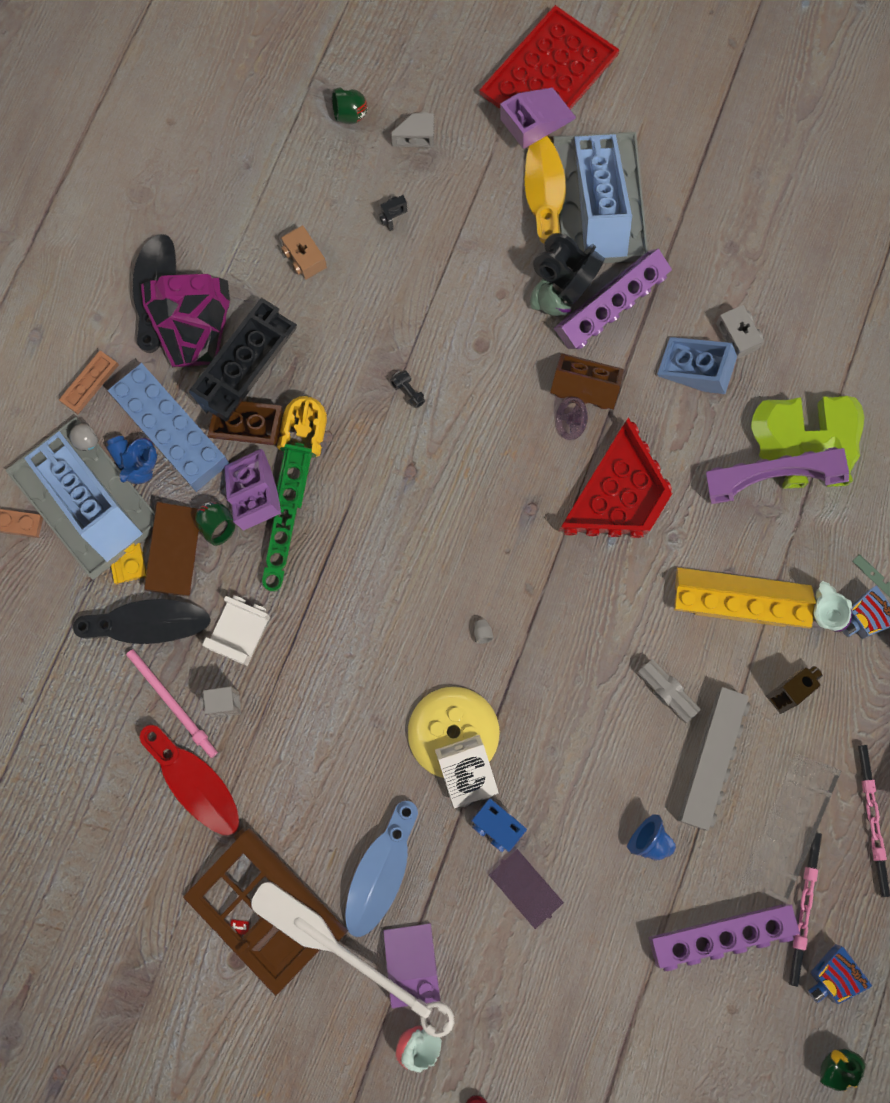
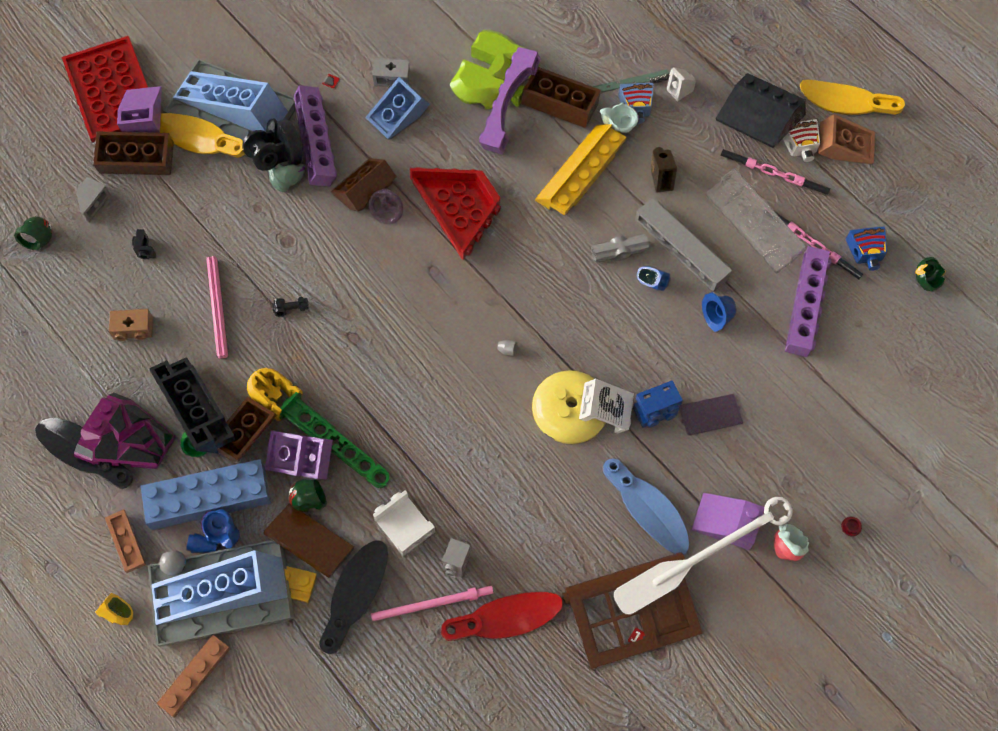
camera: 65 degrees left, 10 degrees down
(19, 414) = (115, 610): none -> yellow rock
(368, 320) = (217, 307): none -> bright pink axle
(487, 139) = (133, 153): none -> reddish brown brick
(652, 745) = (653, 277): none -> rock
(693, 276) = (330, 81): none -> sticker
(820, 528) = (561, 97): none -> reddish brown brick

